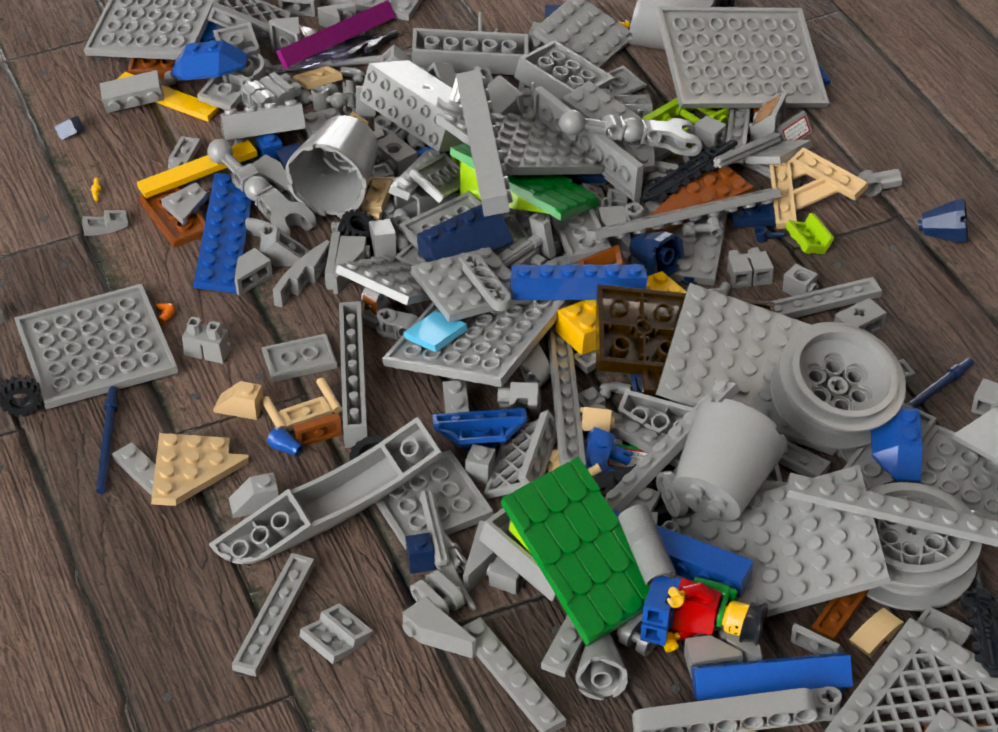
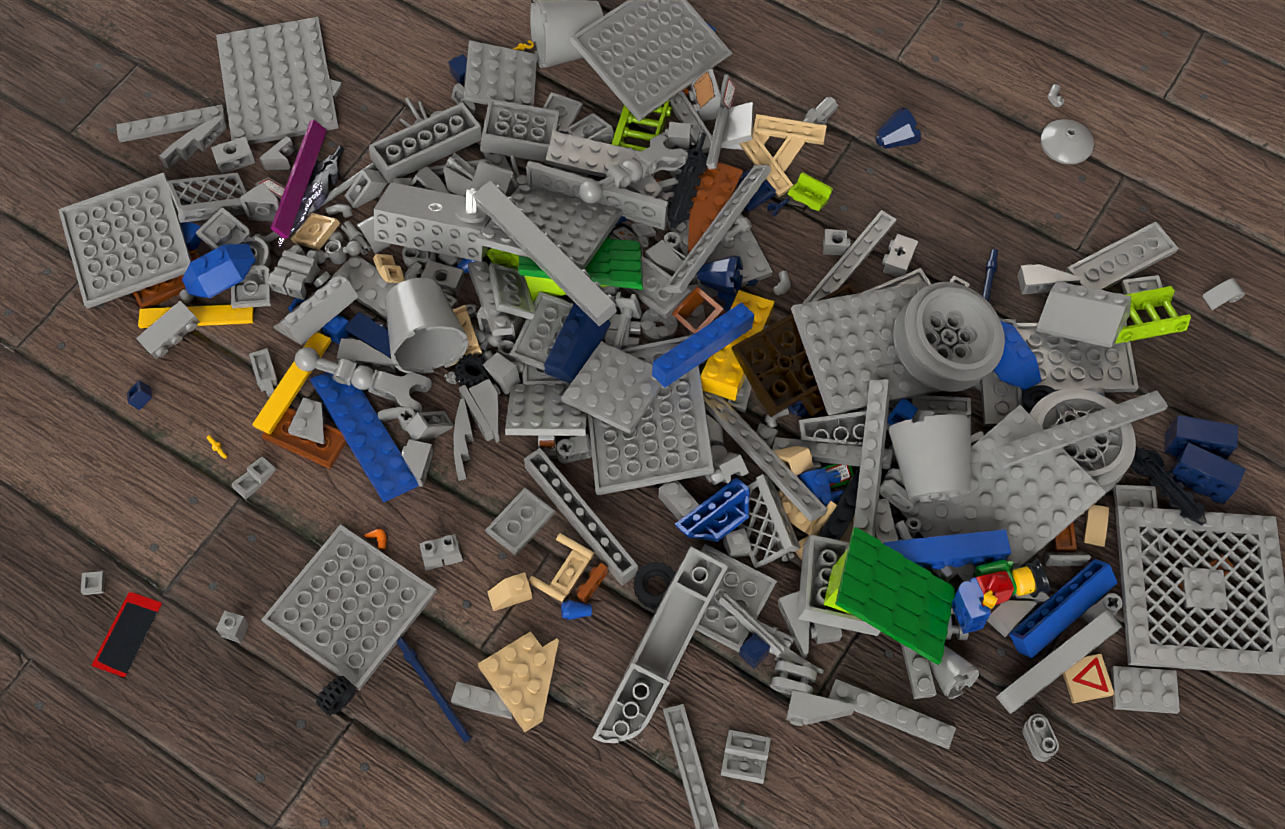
camera: 35 degrees left, 20 degrees up
(253, 495) = (594, 674): light grey slope -> none
(435, 331) = (619, 446): medium azure tile -> none
(490, 280) = (633, 385): light grey beam -> none
(646, 547) = (940, 567): light grey piece -> none
(749, 268) = (791, 248): light grey hips -> none

